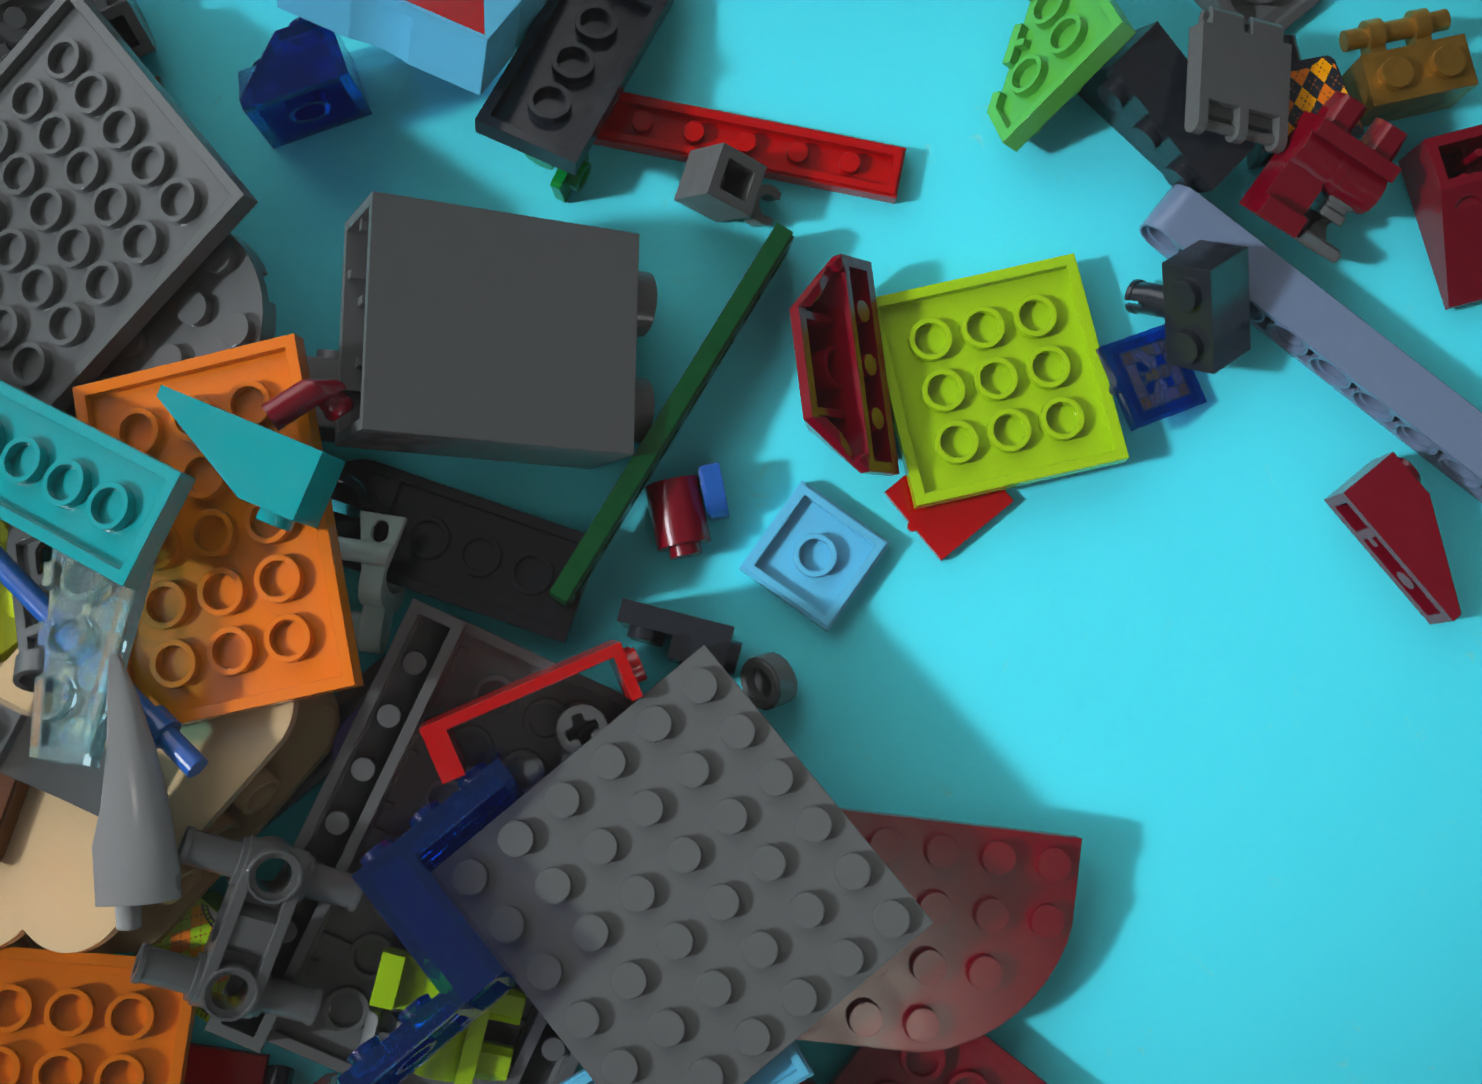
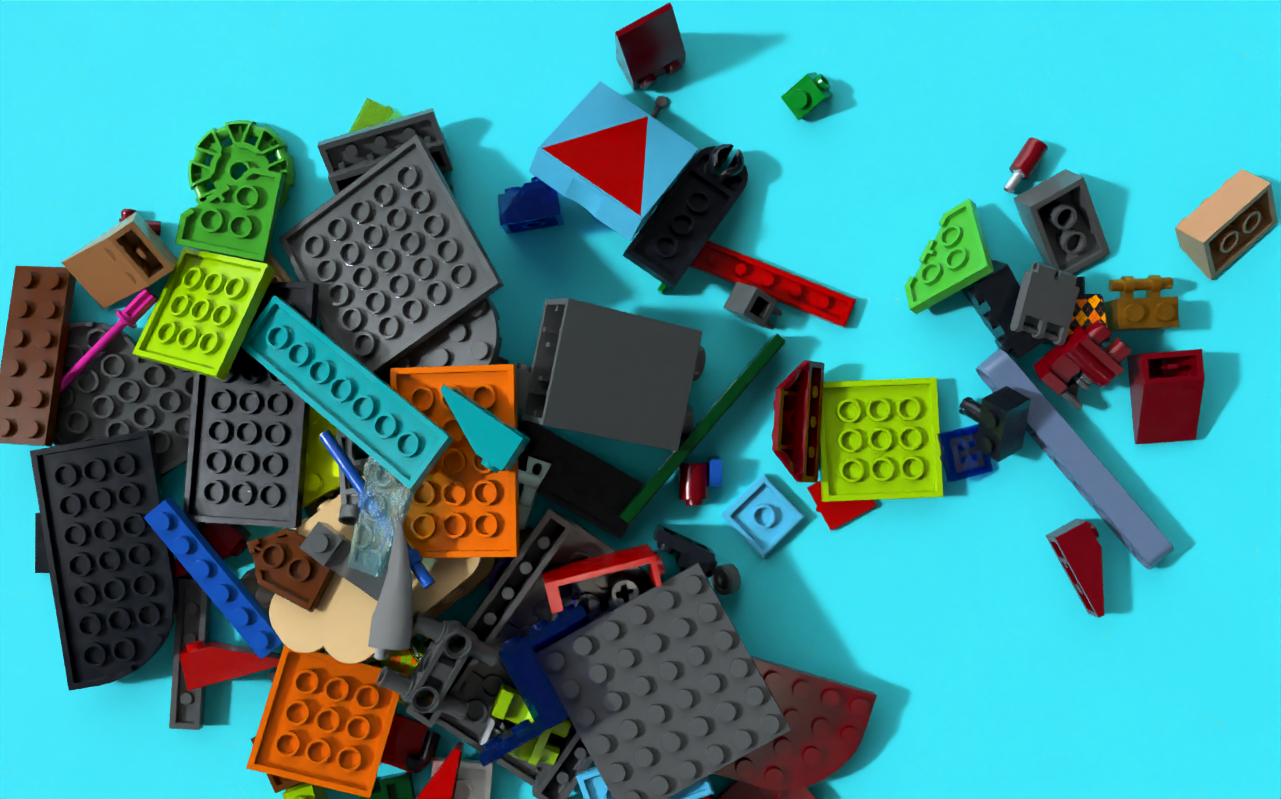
camera: 15 degrees right, 5 degrees up
(305, 396) = (513, 402): dark red arm -> none

